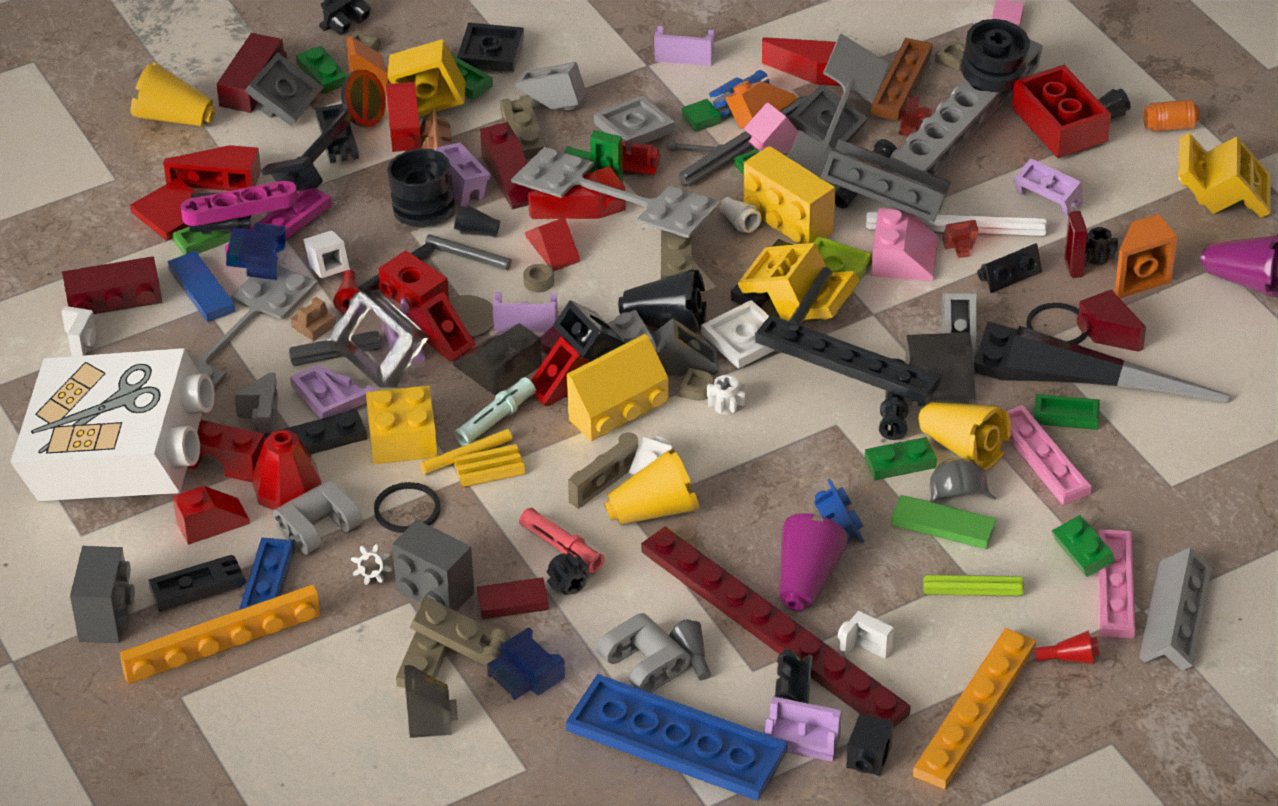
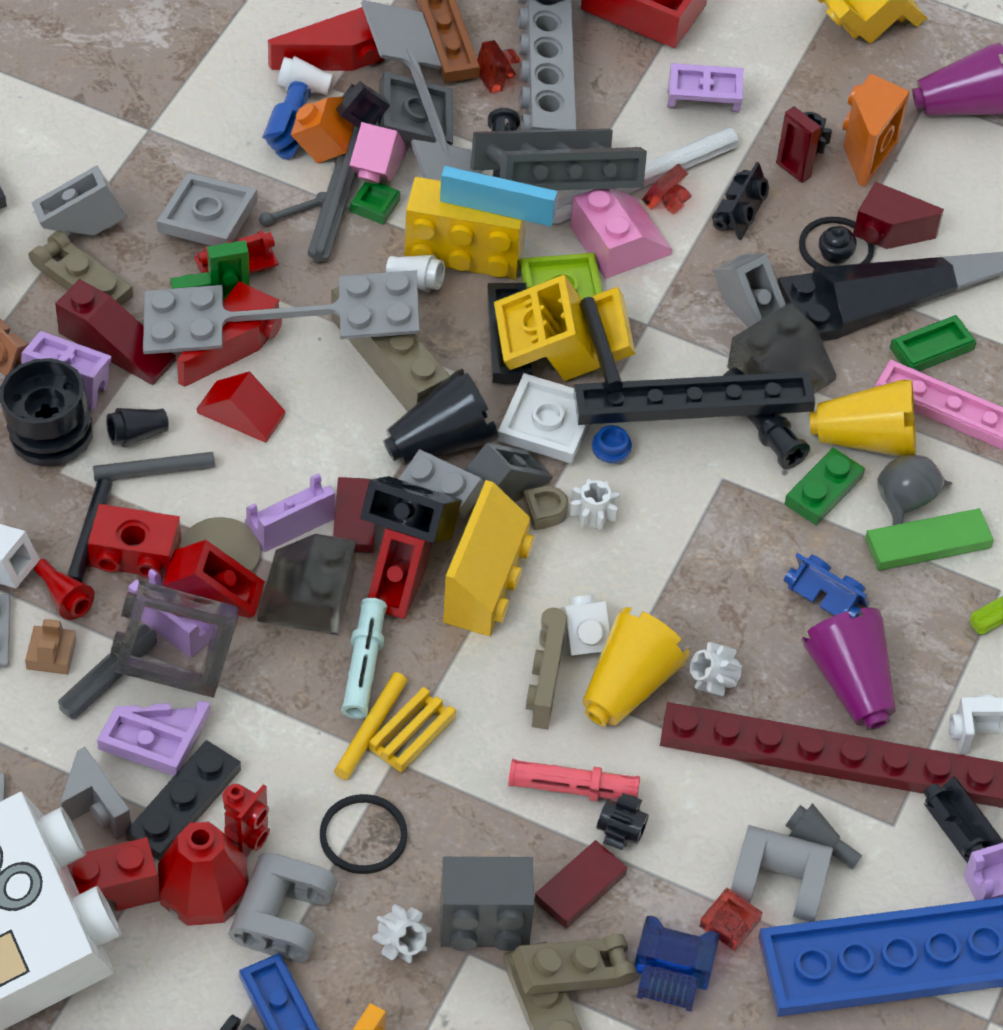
camera: 40 degrees left, 10 degrees up
(207, 513) = (151, 977): red slope -> none
(333, 454) = (246, 817): none -> red hinge
(401, 424) = (279, 733): yellow brick -> none
(538, 277) = (261, 459): dark tan tile -> none
(582, 659) = (731, 918): none -> clear red tile
(684, 48) = (180, 91): lavender hinge -> none
(701, 115) = (266, 165): green tile -> none
(712, 521) = (715, 669): none -> white gear
(774, 368) = (611, 444): none -> blue plate
(775, 71) = (299, 70): none -> white cone
(784, 97) = (362, 105): none -> black tile
(806, 175) = (498, 196): none -> medium azure tile
(1053, 320) = (837, 244): none -> black plate

